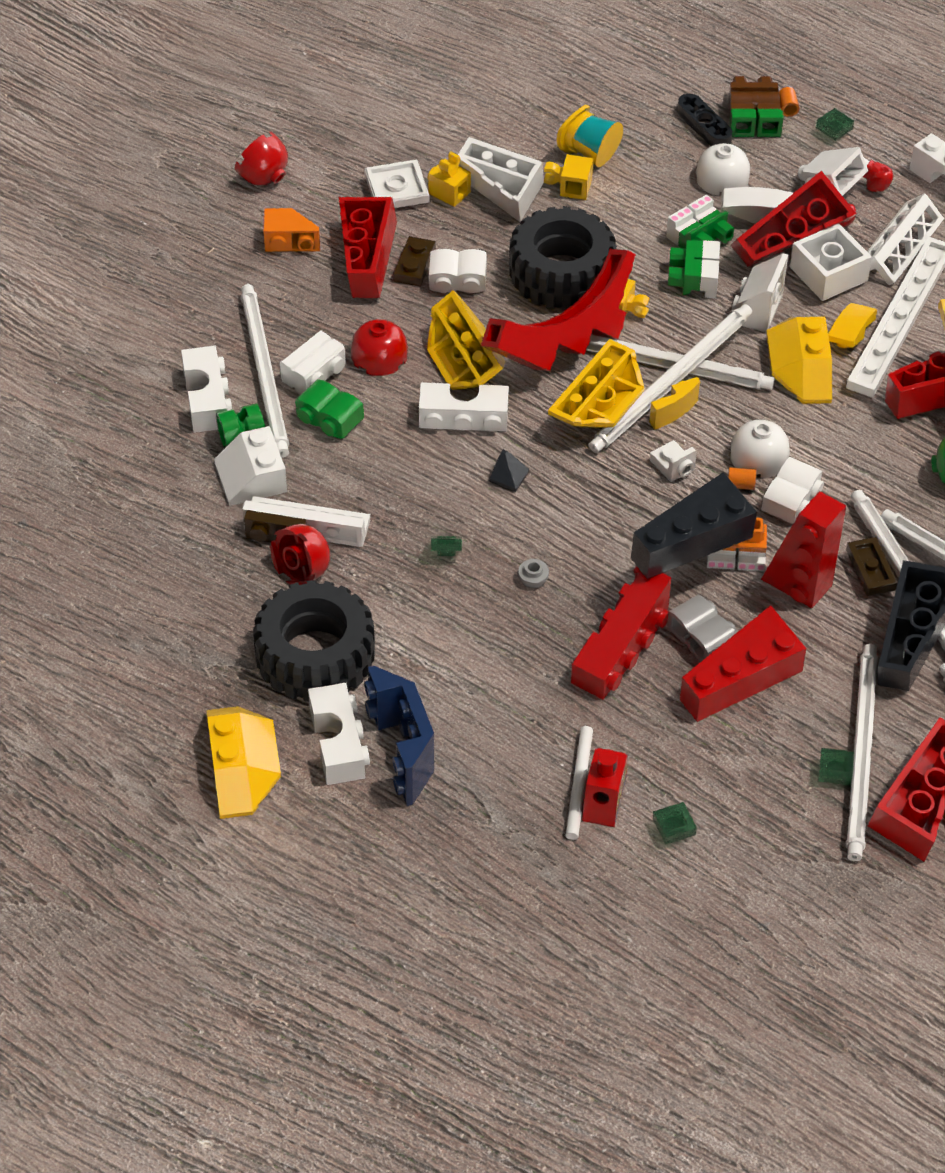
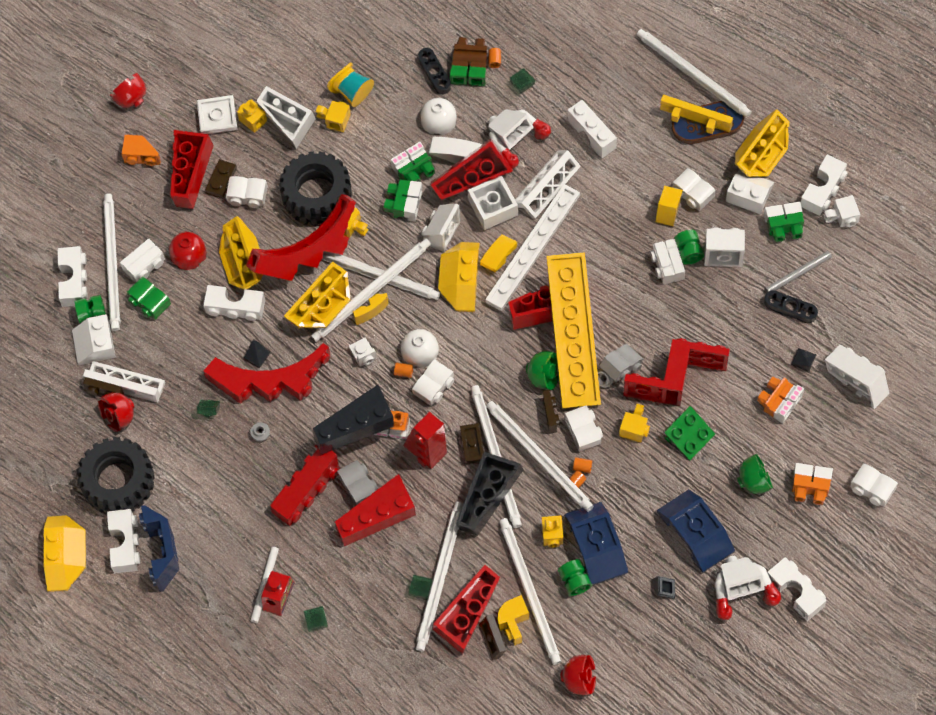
camera: 10 degrees right, 15 degrees up
(534, 507) = (268, 383): none -> red arch

